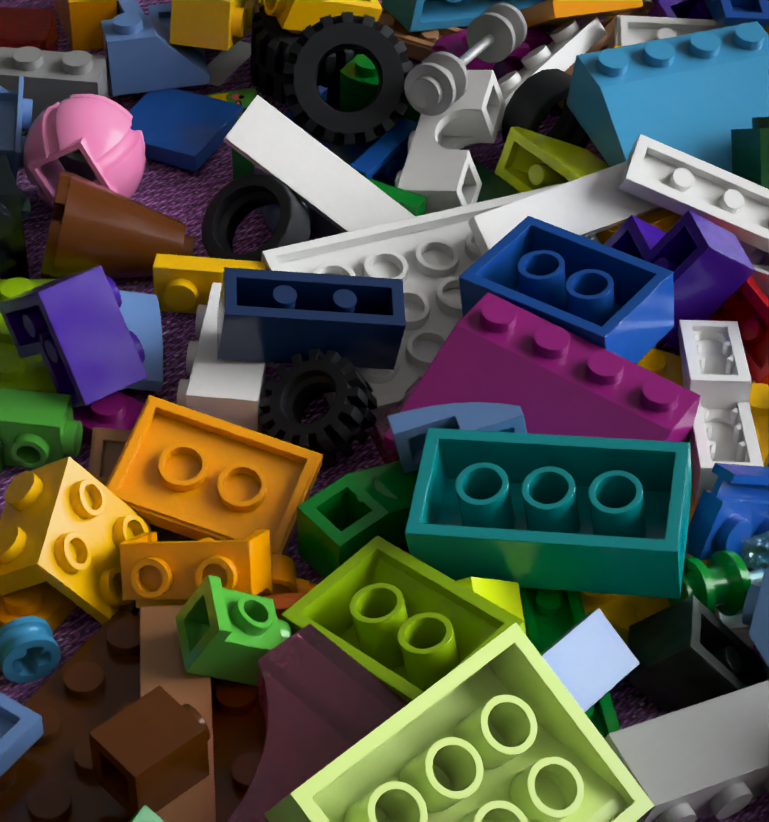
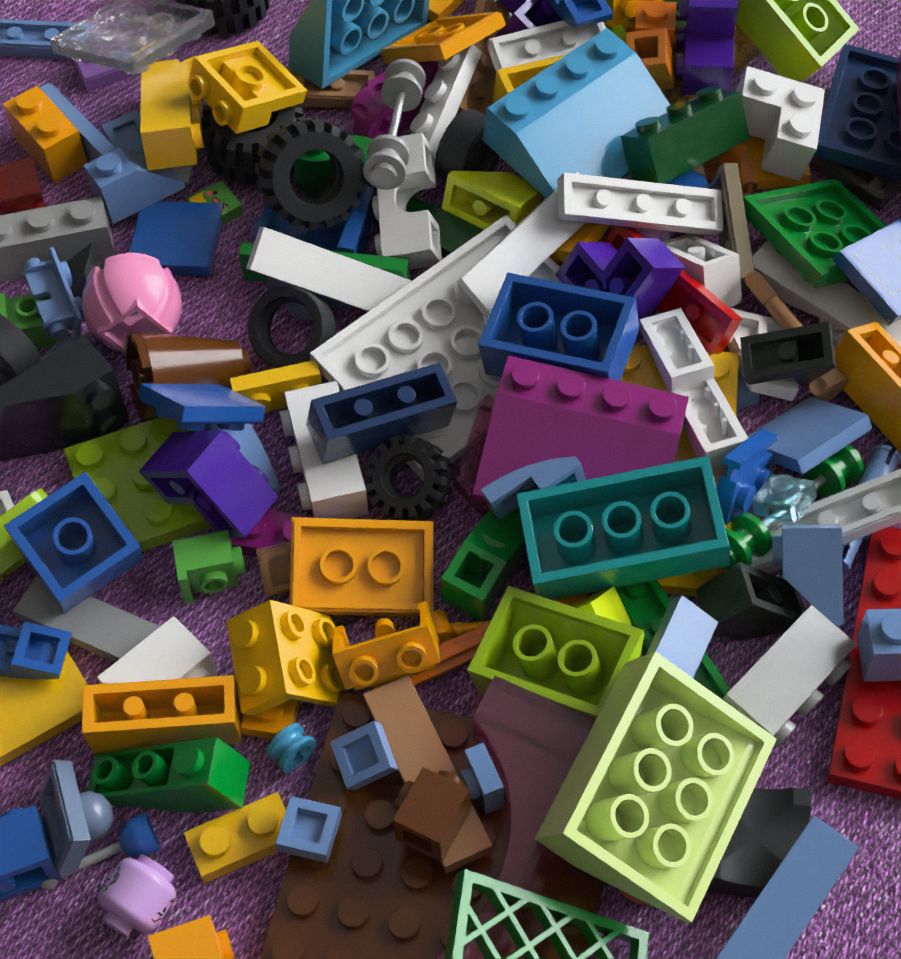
camera: 15 degrees left, 15 degrees up
(84, 252) = (201, 404): none -> blue tile
(103, 671) = (364, 755): none -> medium blue plate
(227, 632) = (450, 692): bright green brick -> none
(238, 741) = (482, 779): none -> medium blue plate

